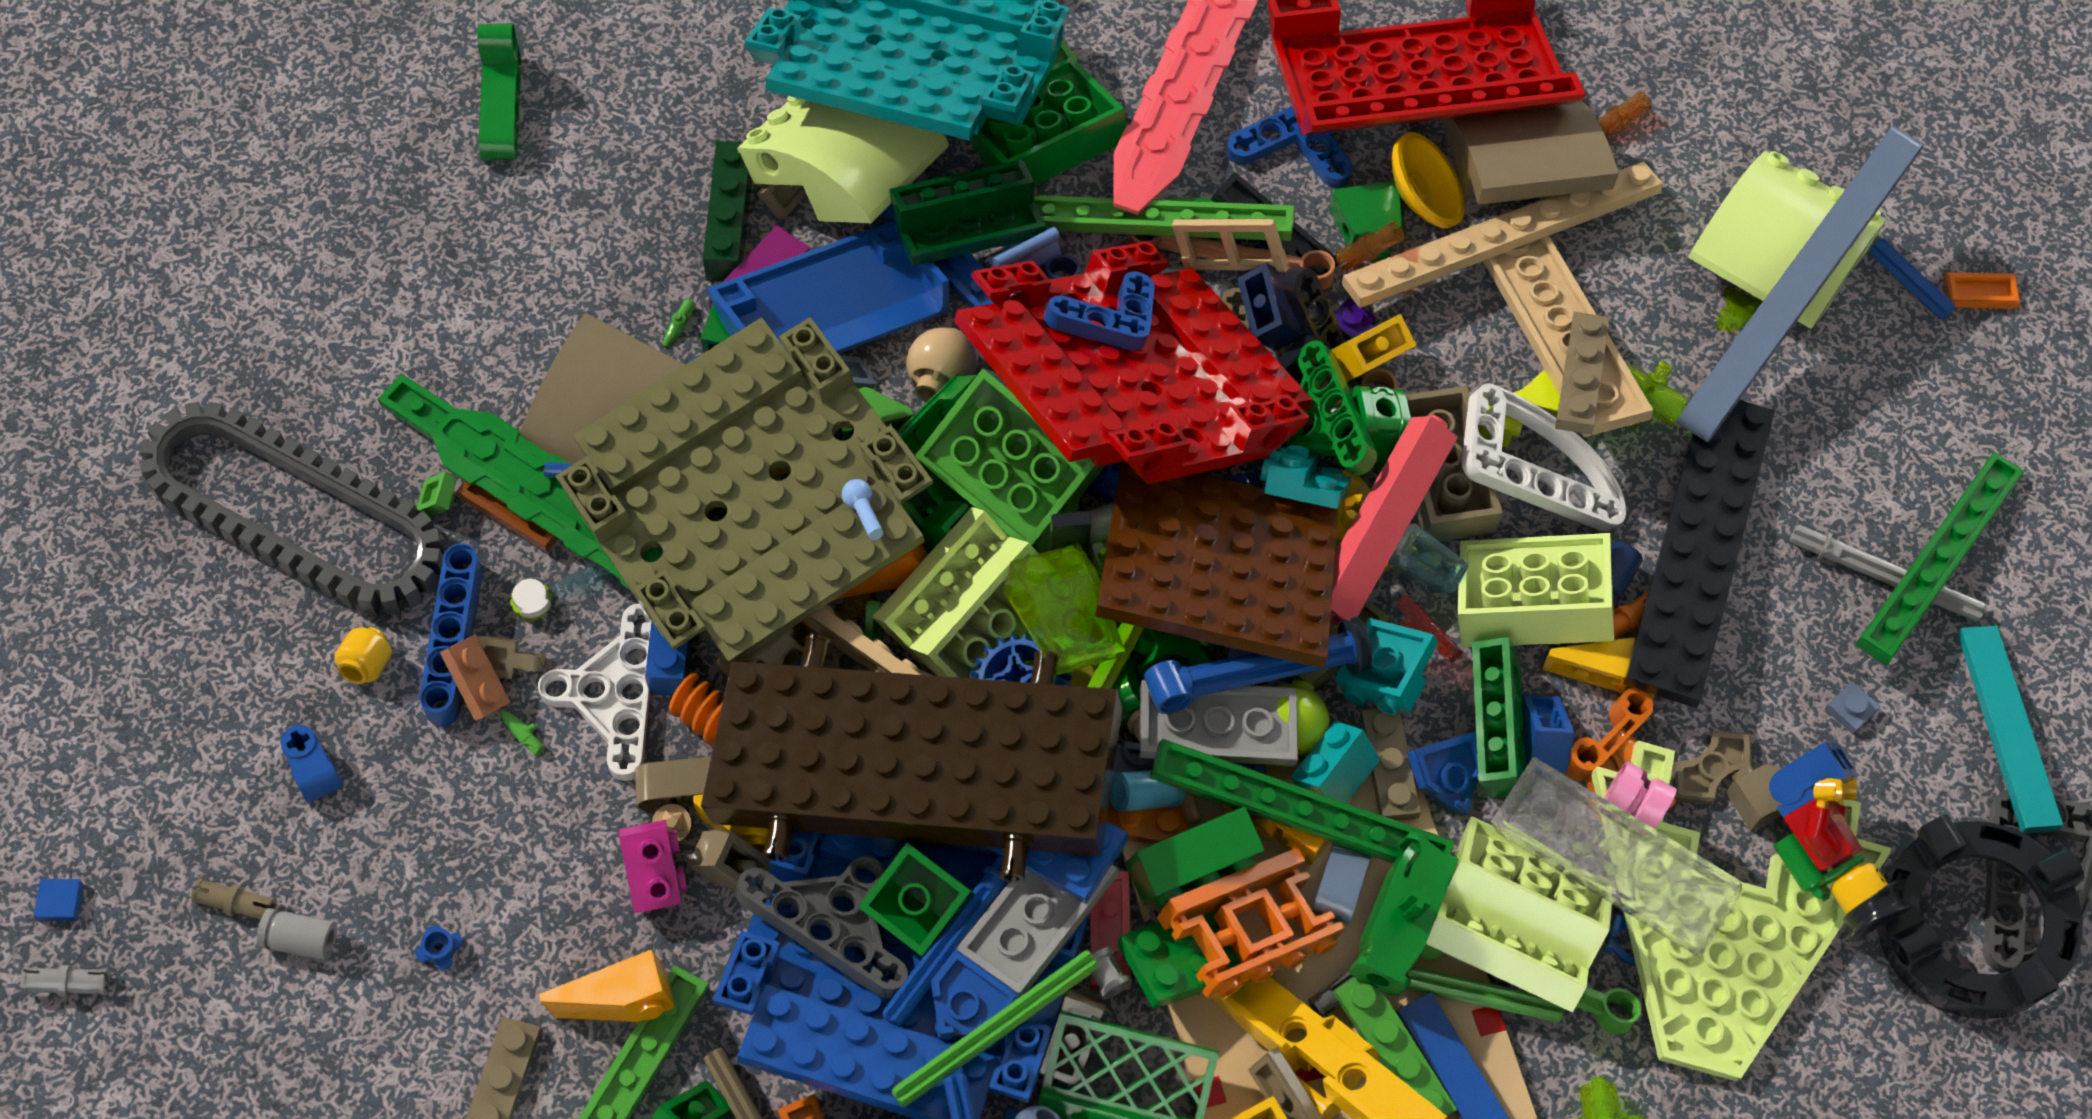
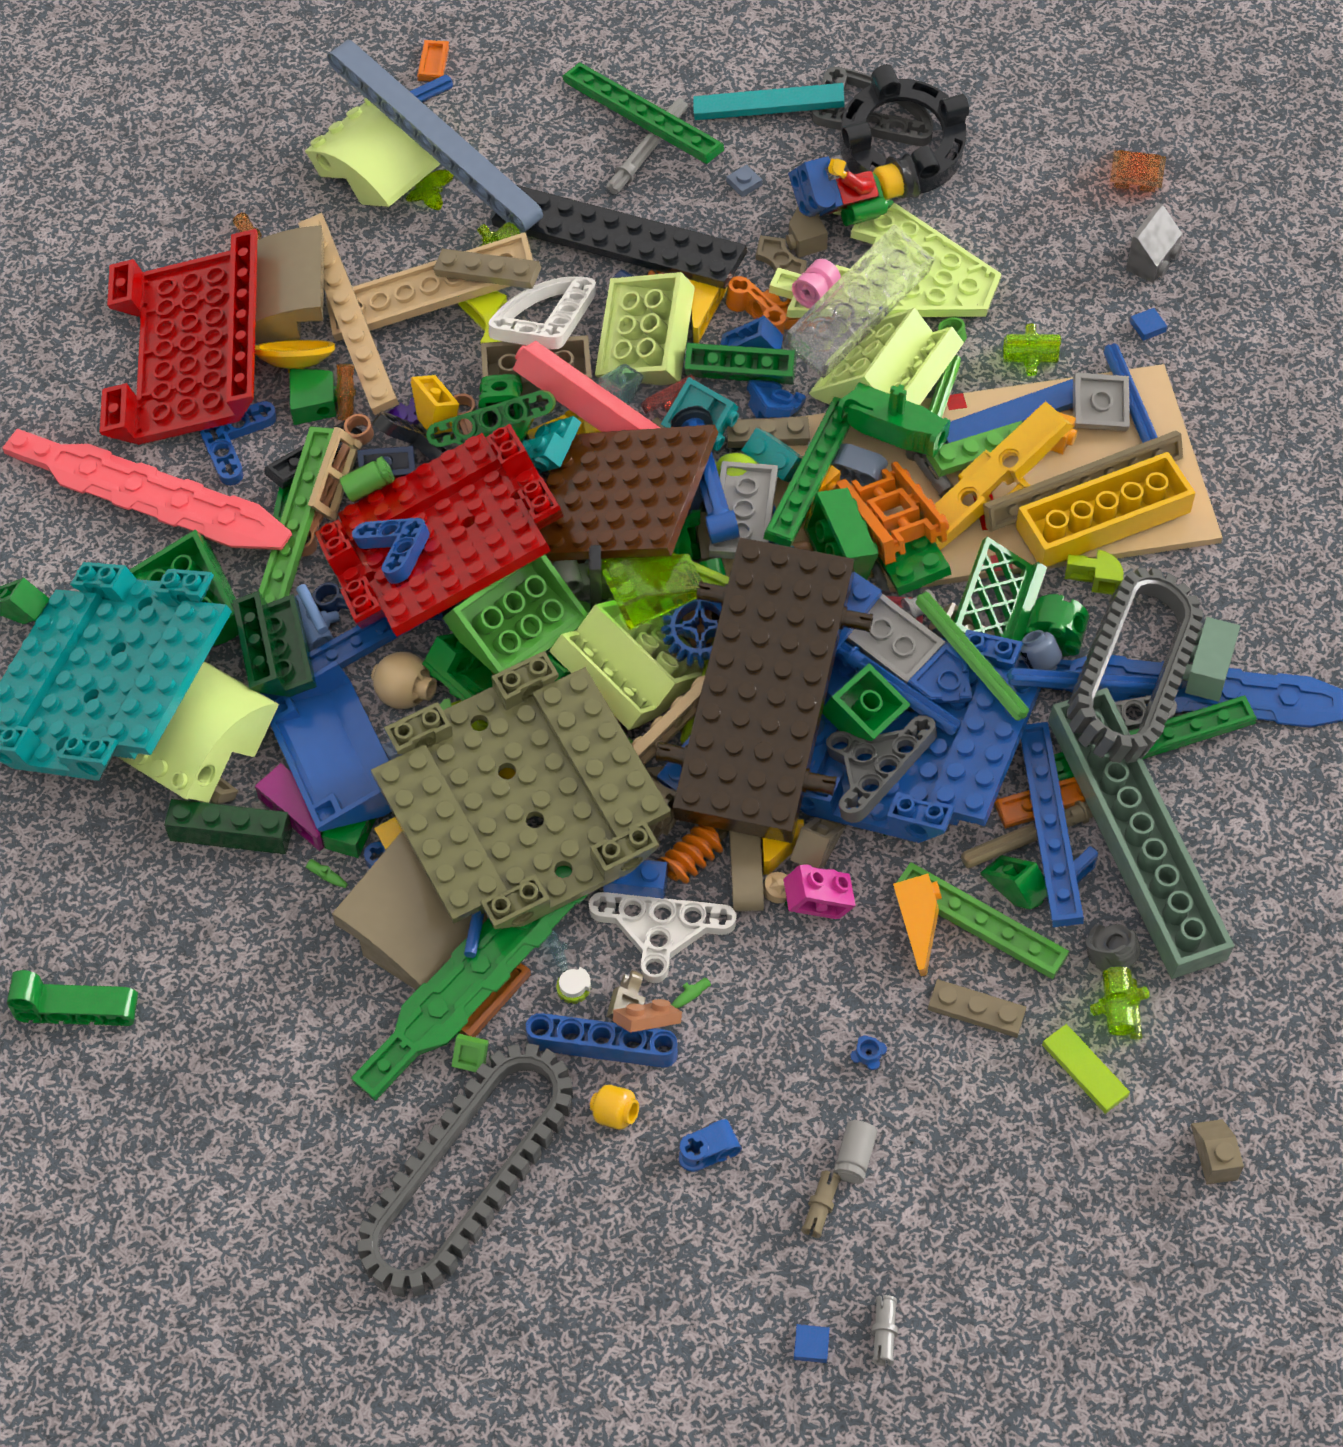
camera: 80 degrees left, 5 degrees down
(857, 495) = (548, 705): light blue bar -> none
(1228, 282) = (367, 479): none -> bright green piece

